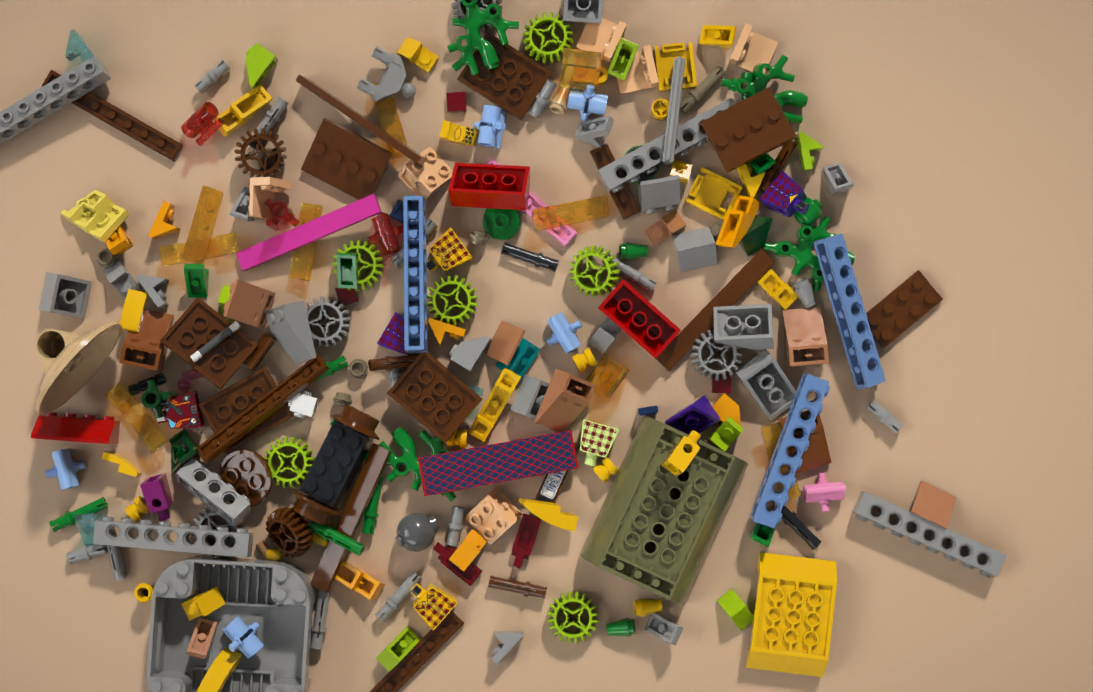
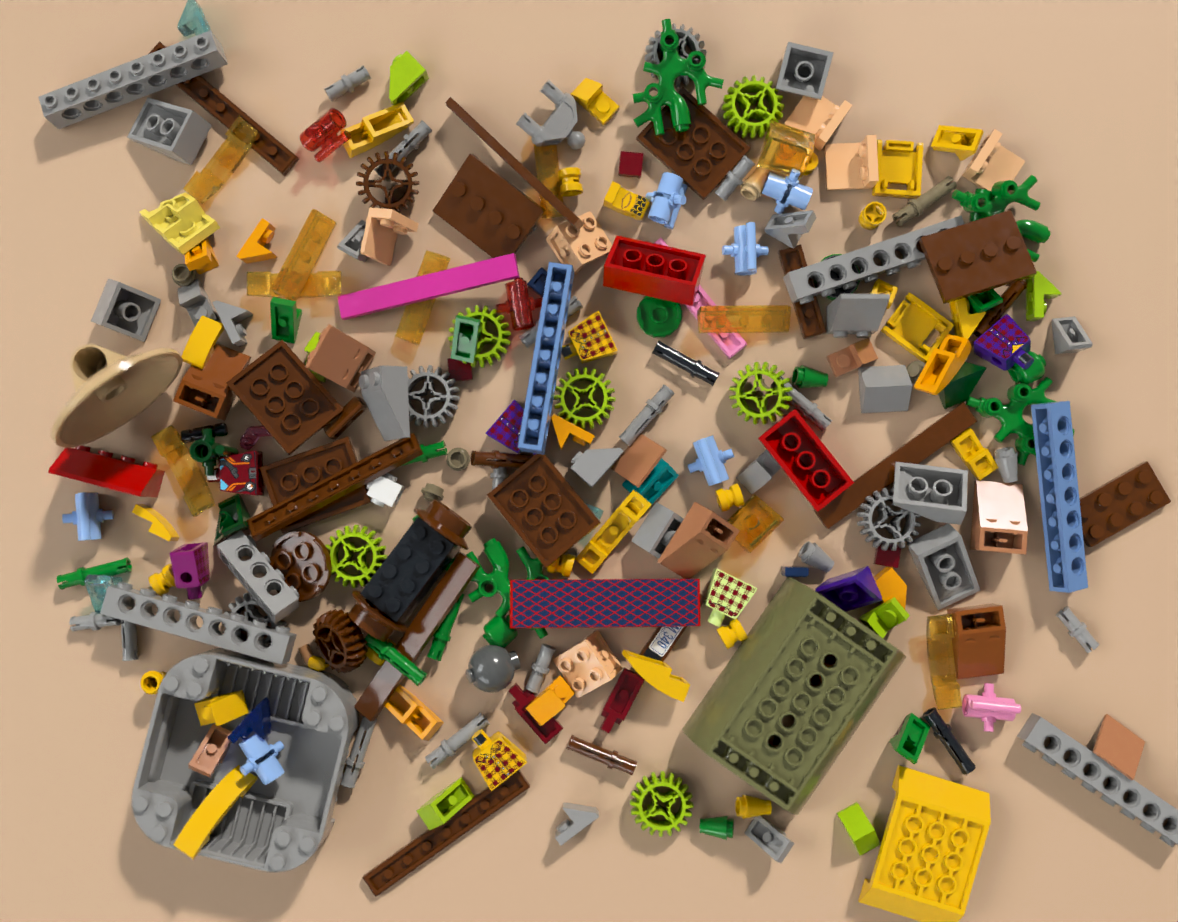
camera: 10 degrees right, 0 degrees up
(73, 141) = (170, 130): none -> light grey slope
(122, 159) = (224, 162): none -> clear yellow slope
(215, 341) = (292, 396): dark grey bar -> none
(234, 607) = (257, 721): none -> clear blue slope
(286, 218) = (404, 264): clear red pin -> none
(409, 125) = (570, 181): none -> yellow wheel
(416, 501) = (499, 632): none -> green head
(478, 238) = (628, 329): dark tan plate -> none
(505, 305) = (641, 421): none -> light grey pin
(562, 156) = (745, 249): none -> light blue pin
(623, 59) = (840, 145): lime slope -> none
(663, 396) = (814, 556): none -> light grey cone
(673, 110) = (890, 218): light grey axle -> none
(678, 459) = (836, 636): yellow torso -> none
(793, 421) = (959, 639): medium blue brick -> none

